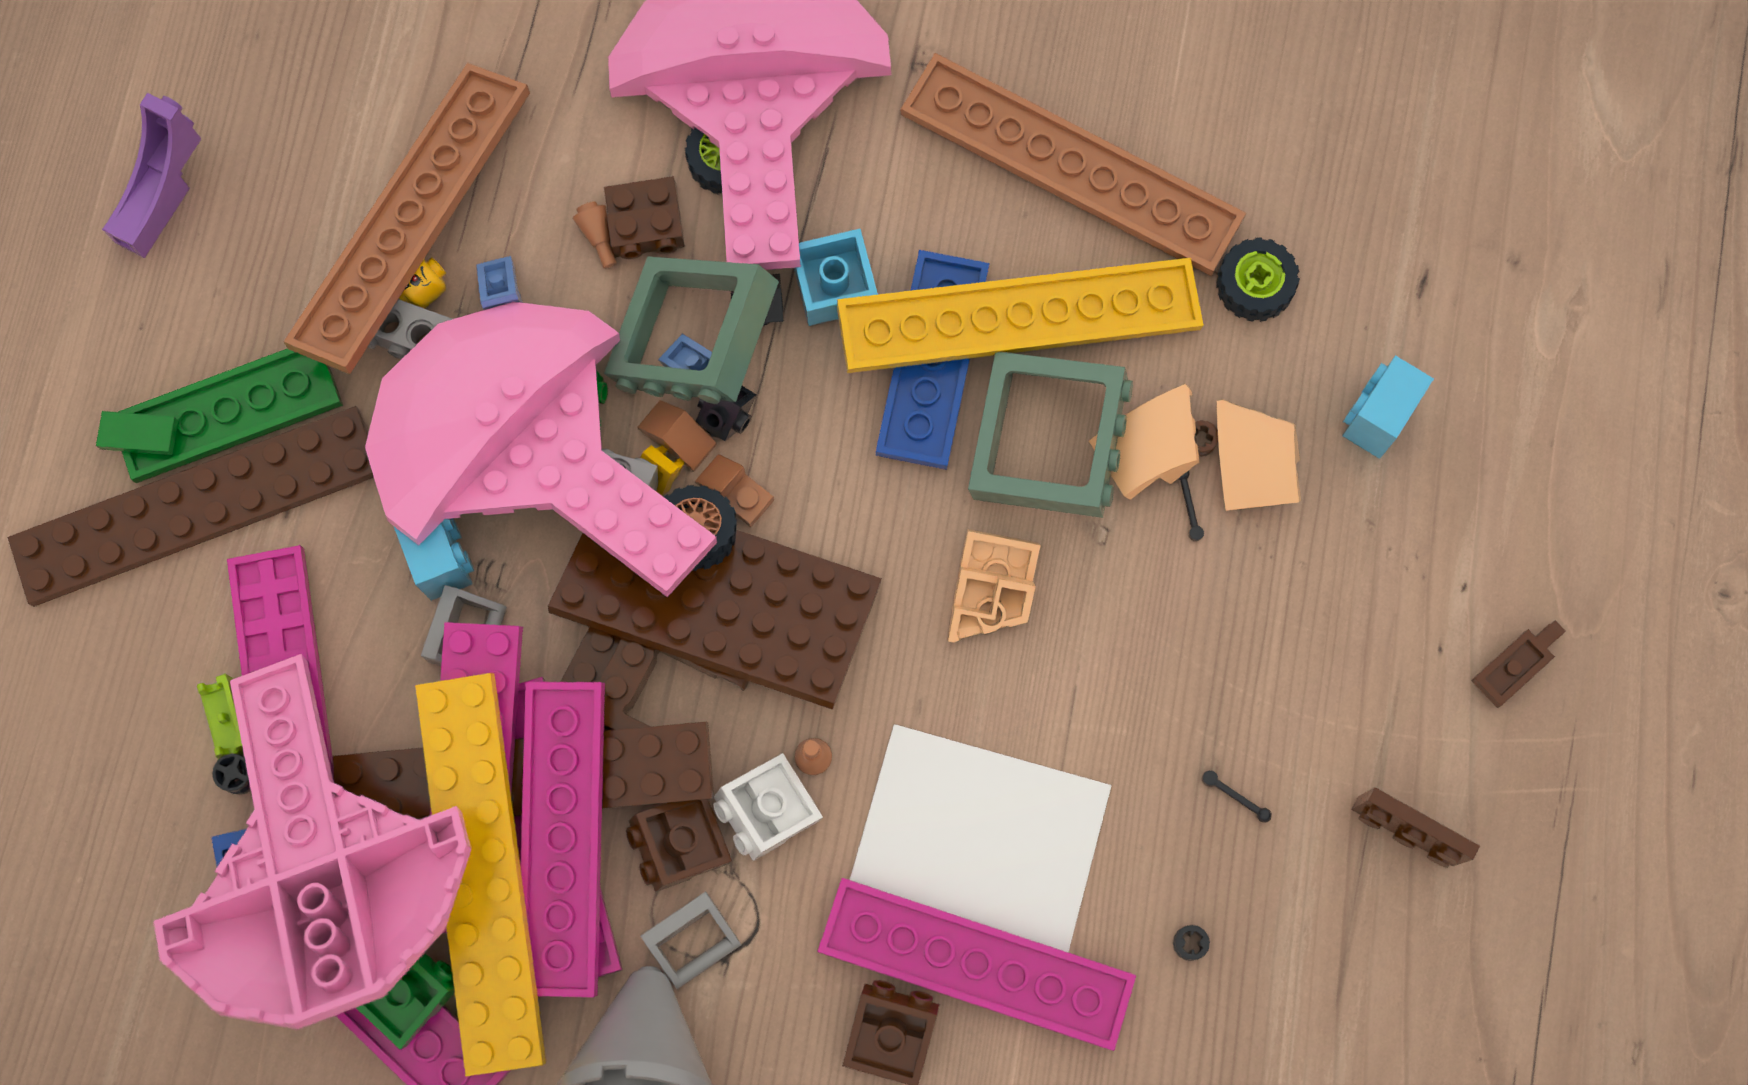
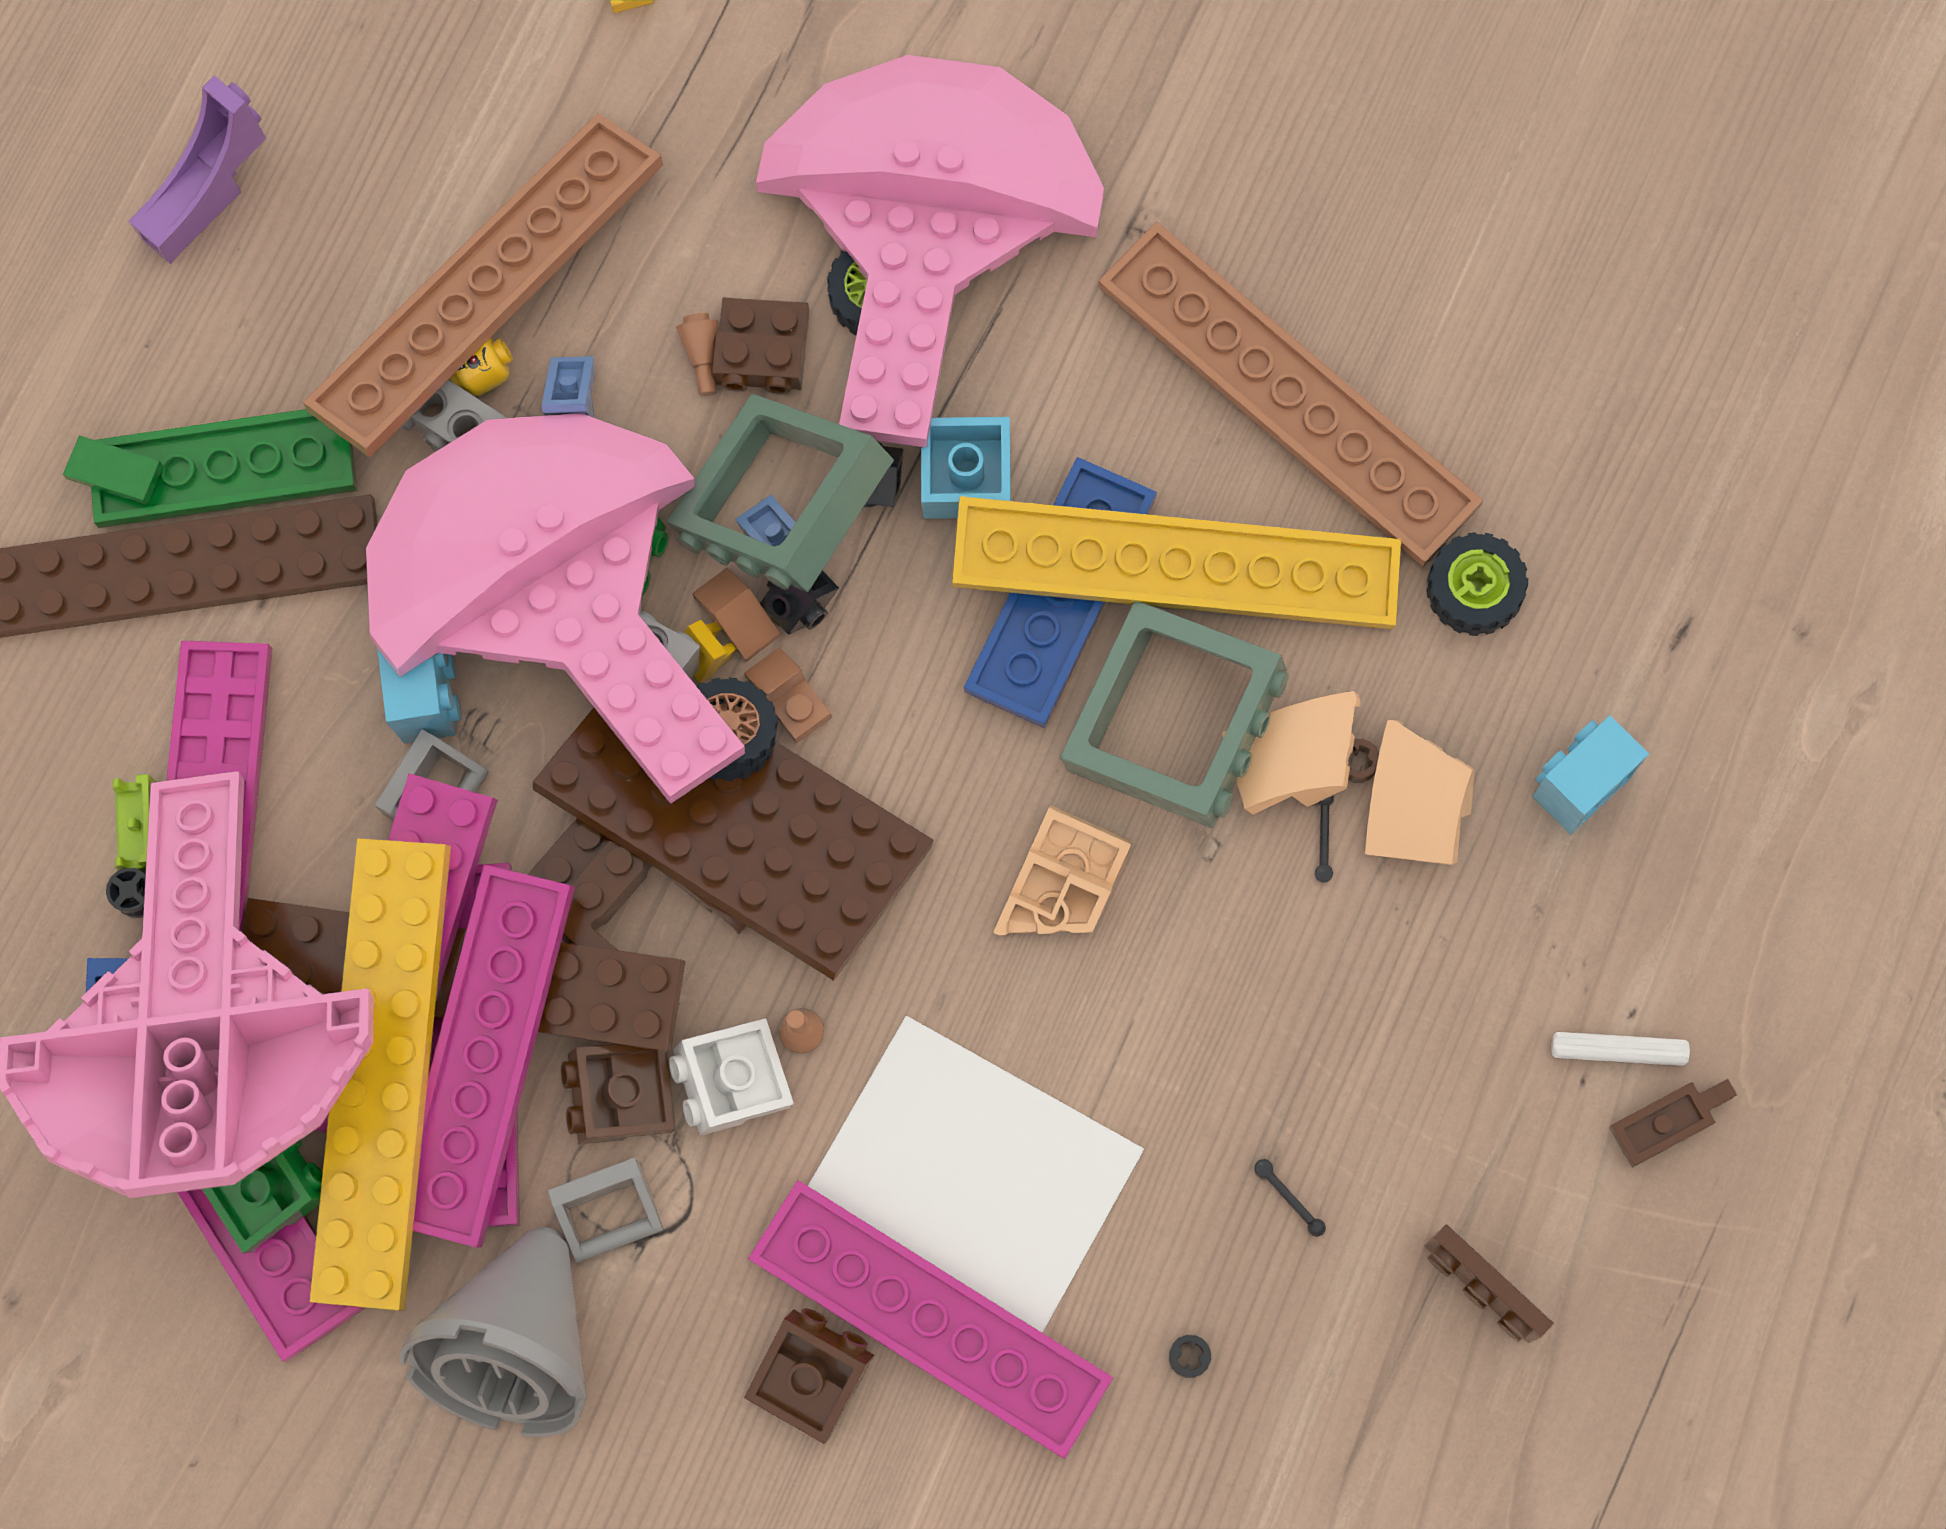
camera: 20 degrees right, 0 degrees up
(1463, 616) = (1620, 1048): none -> white axle

